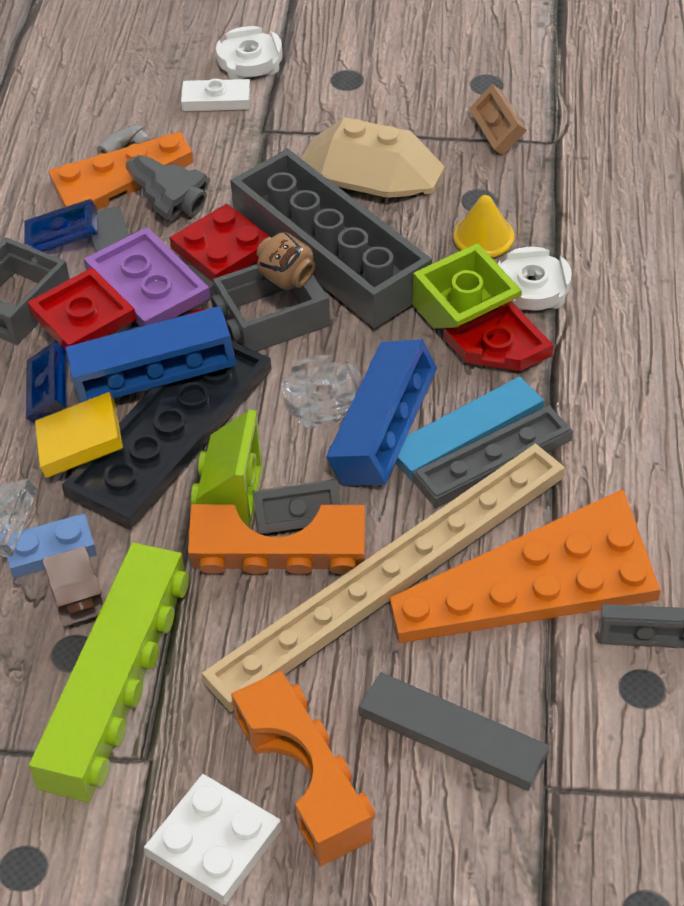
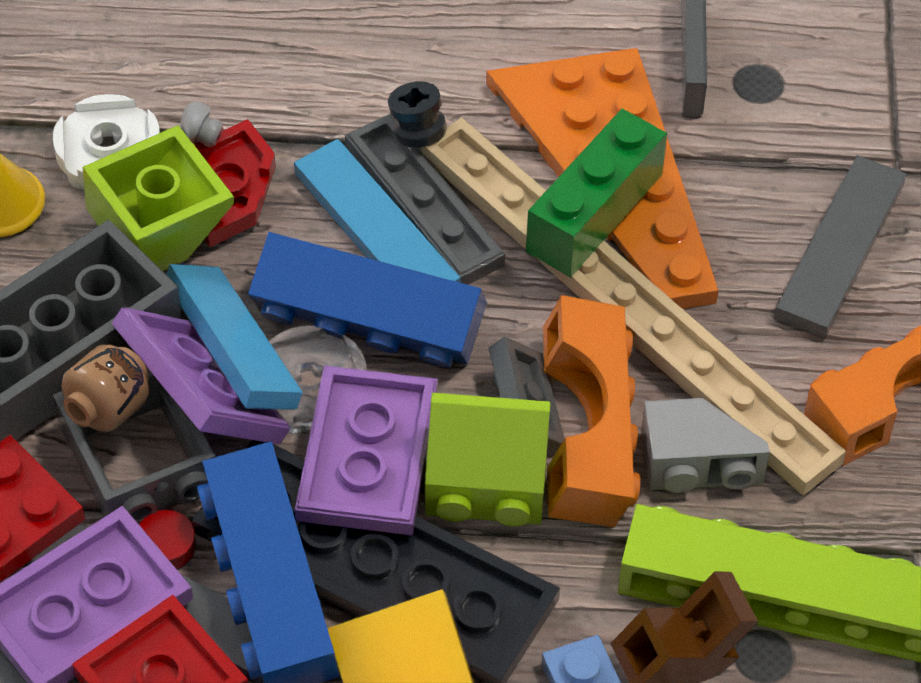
camera: 95 degrees left, 5 degrees up
(244, 603) = (699, 447): none -> light grey slope
(281, 407) = (366, 451): none -> medium lavender tile
(304, 315) = (193, 378): none -> medium lavender tile
(341, 335) = (234, 338): none -> dark azure tile
(471, 532) = (595, 192): none -> green brick
(547, 313) = (199, 126): none -> light grey arm
(555, 431) = (417, 114): none -> black wheel

